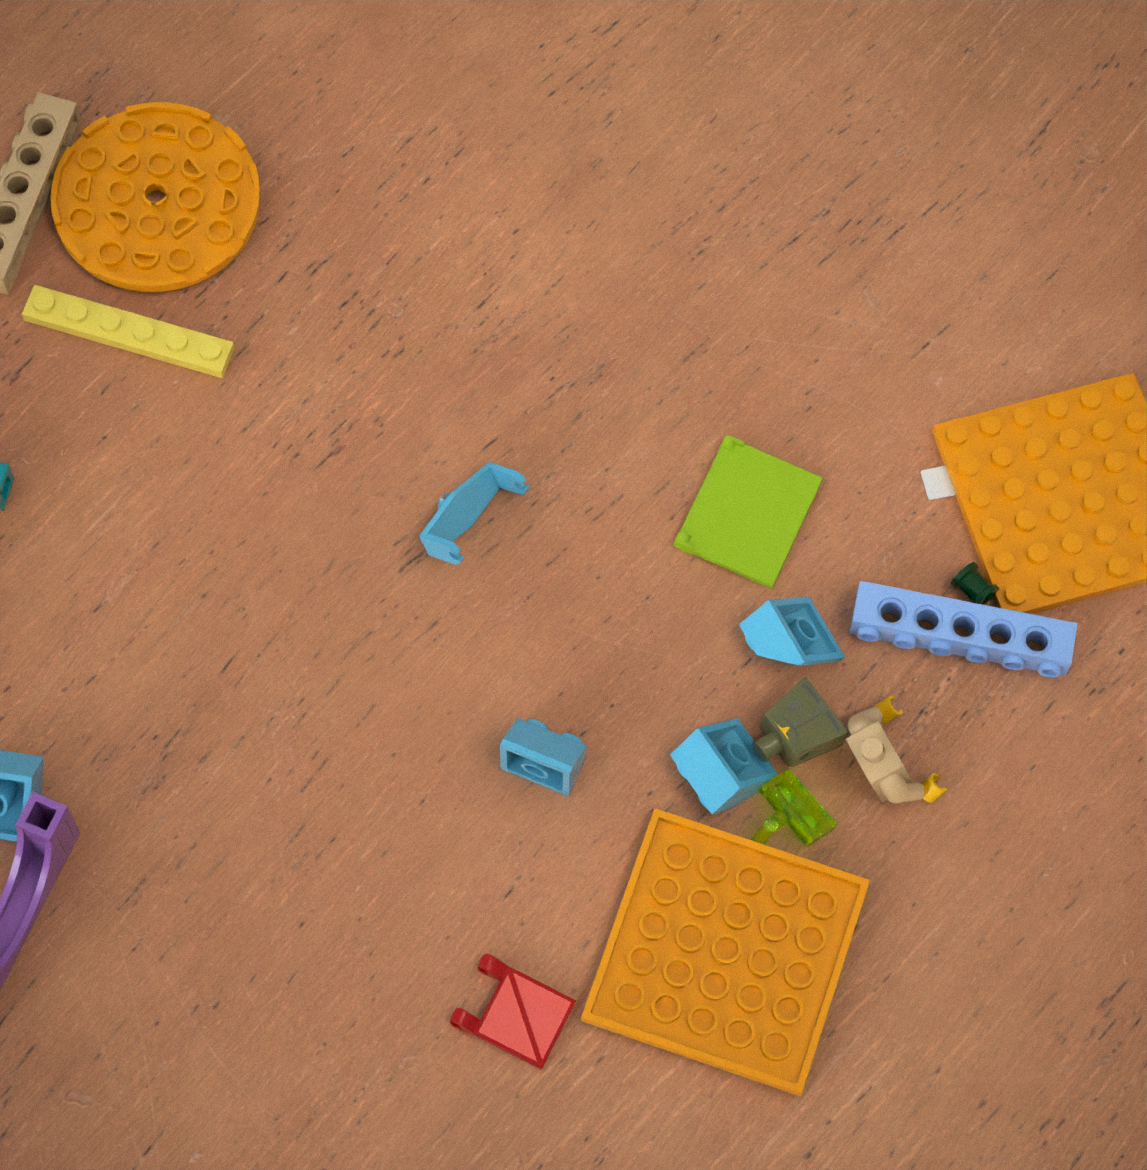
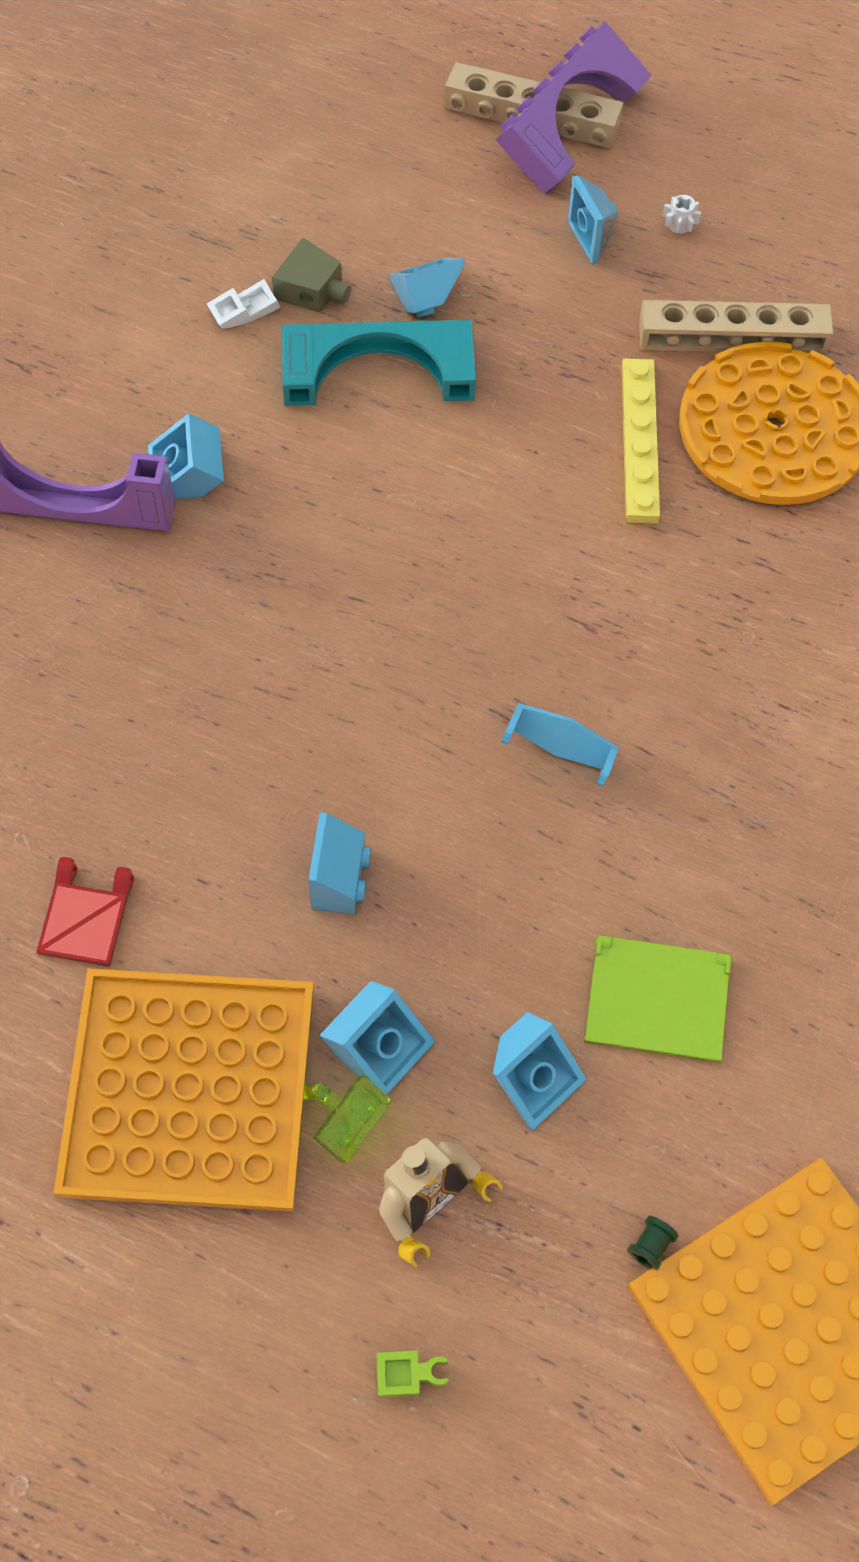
camera: 75 degrees right, 5 degrees down
(799, 727) = (437, 1096): olive torso -> none
(937, 483) = (760, 1179): white sticker -> none
(945, 613) = (600, 1349): light blue brick -> none
(1036, 824) = (401, 1373): none -> lime plate

